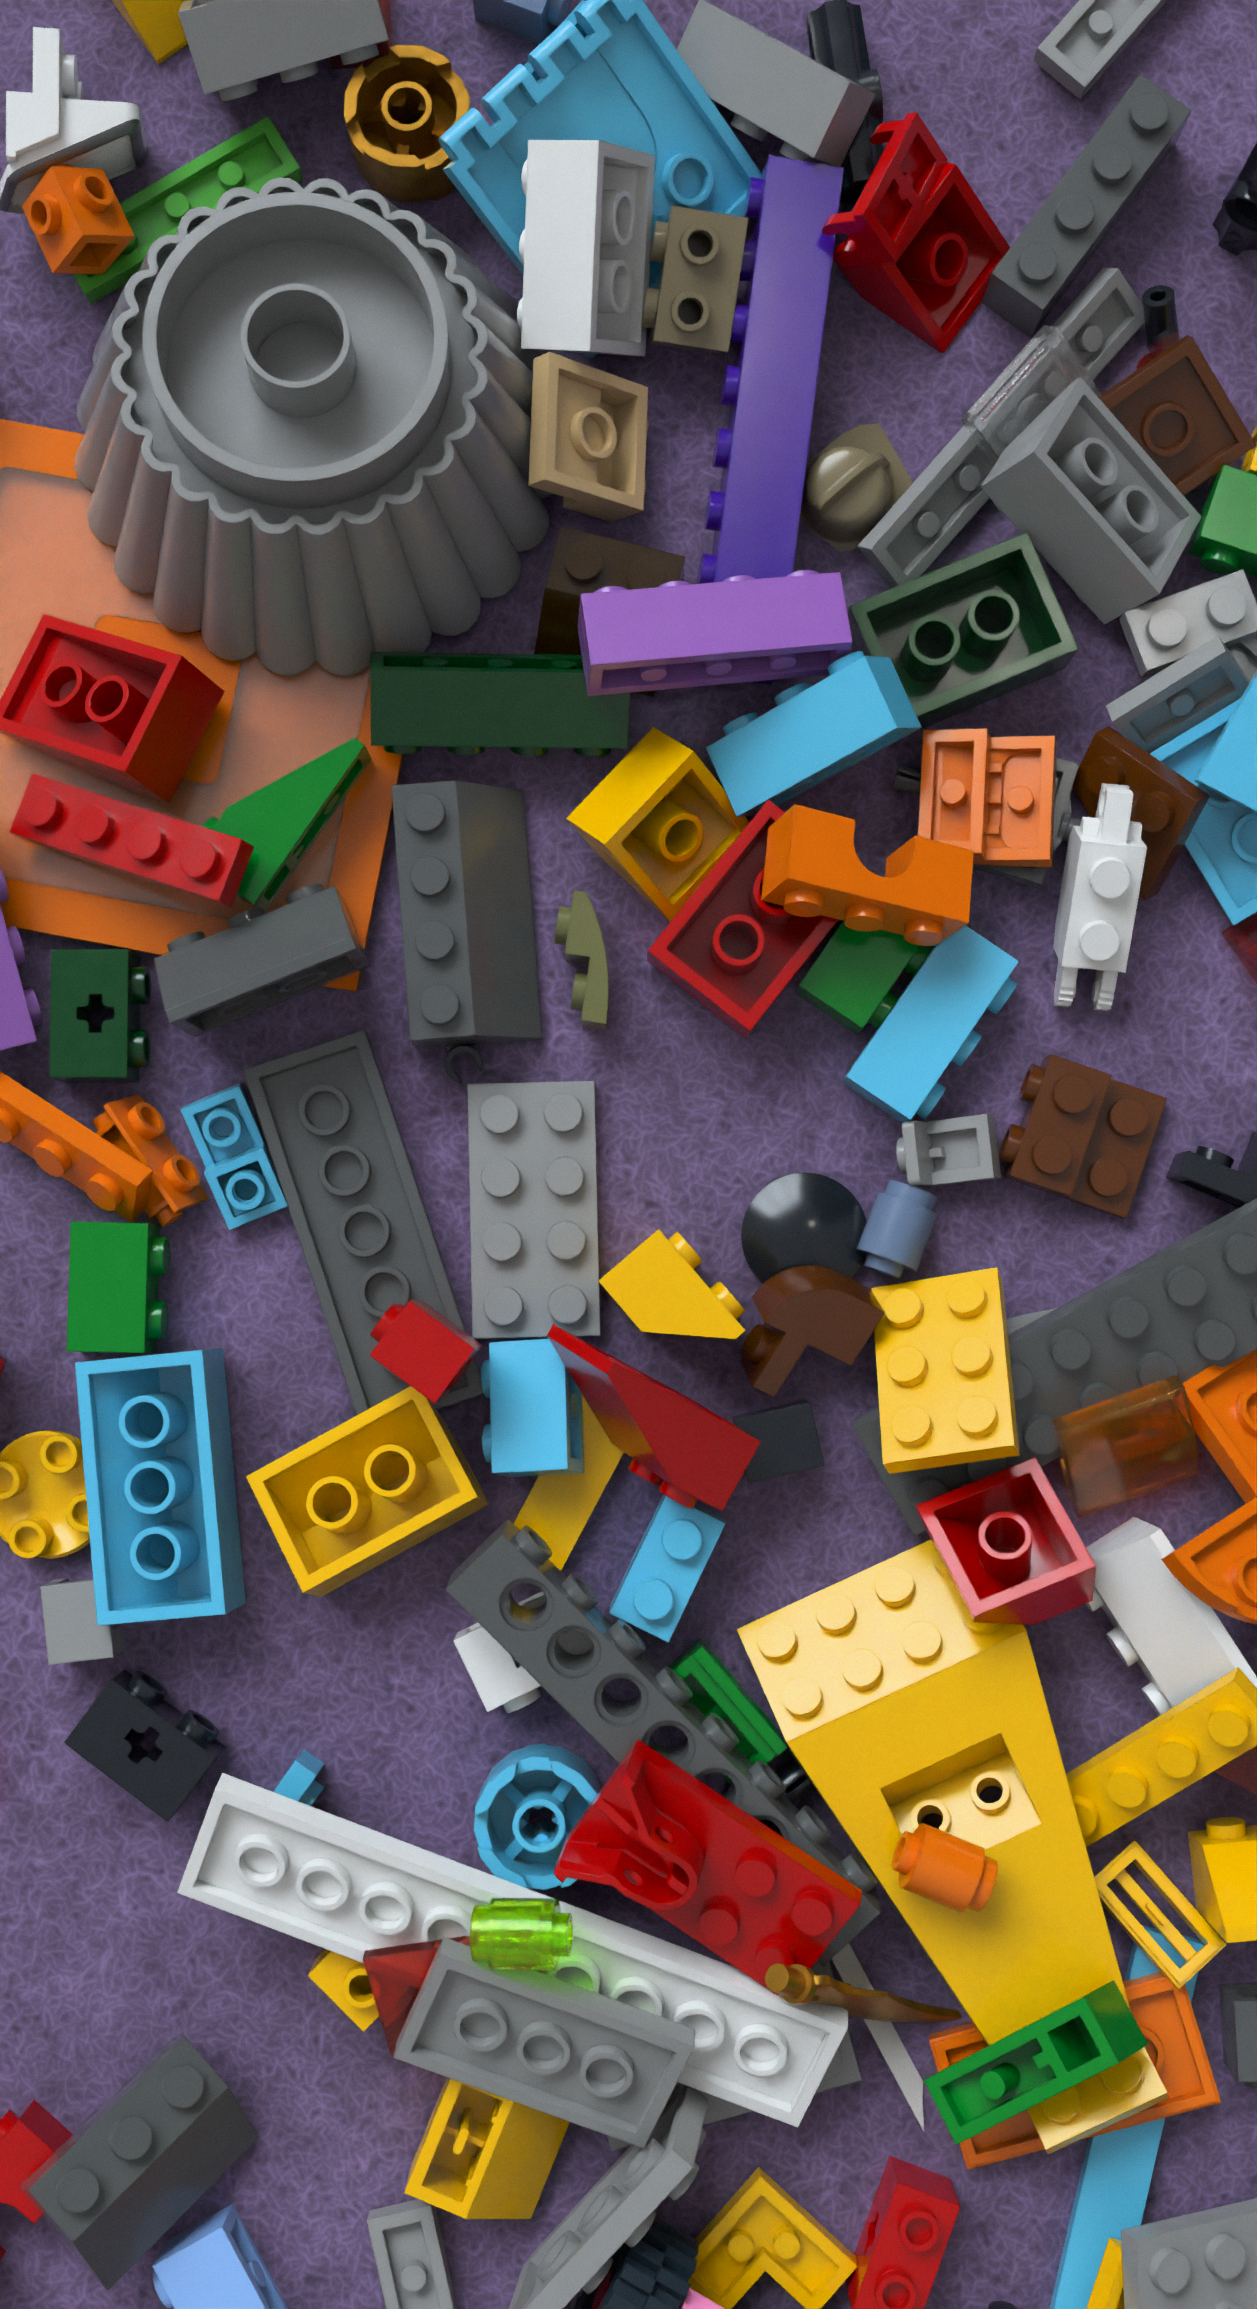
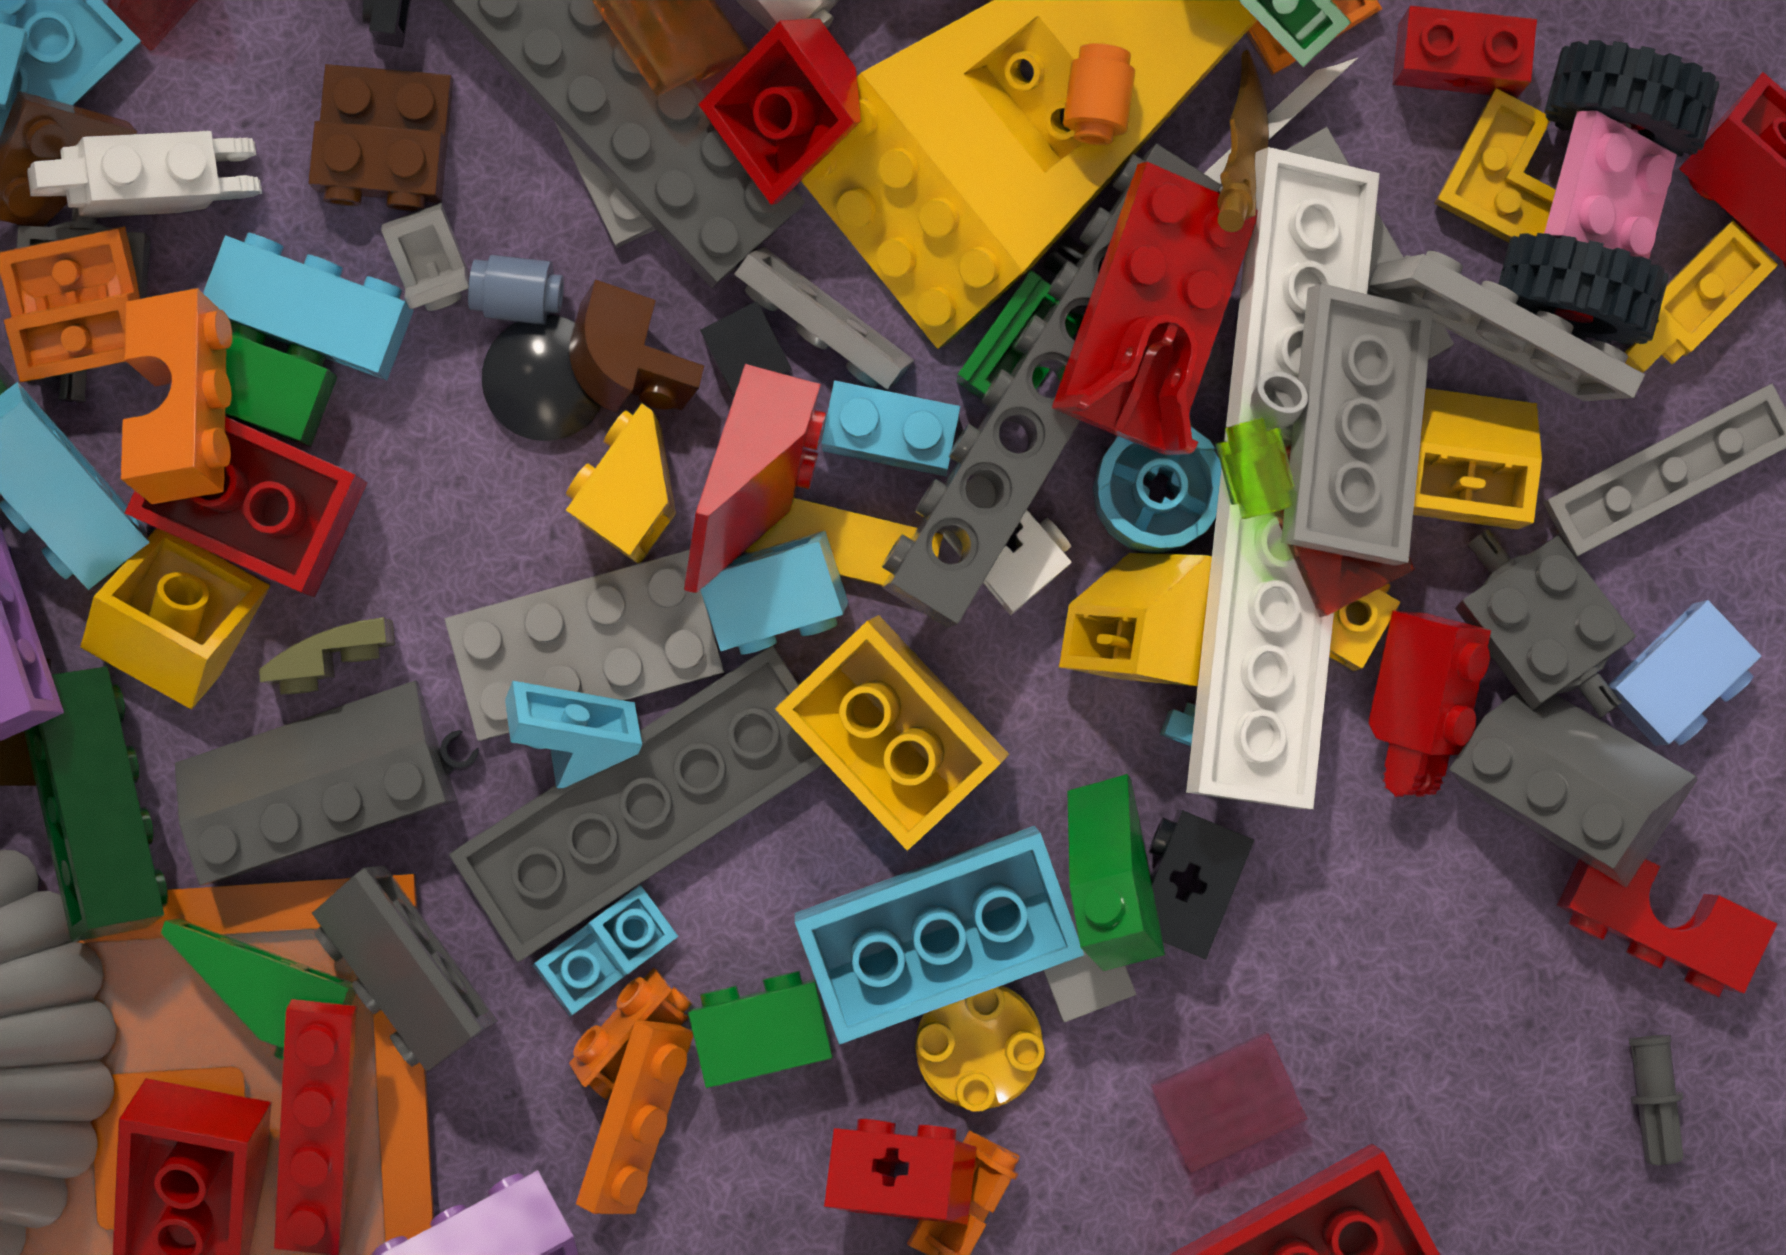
camera: 110 degrees left, 0 degrees up
(80, 987) = (471, 1145): dark green brick -> none
(171, 1671) = (1111, 876): none -> green slope
(264, 2033) = (1426, 697): none -> red hinge
(308, 2169) = (1546, 622): none -> dark grey plate
(412, 1768) = (1141, 620): none -> yellow slope
(423, 1348) = (737, 706): red brick -> none
(450, 1184) = (579, 728): none -> medium azure slope
(586, 1974) = (1283, 402): none -> light grey hinge
(792, 1524) = (823, 319): none -> light grey plate
(944, 1372) = (637, 208): yellow plate -> none

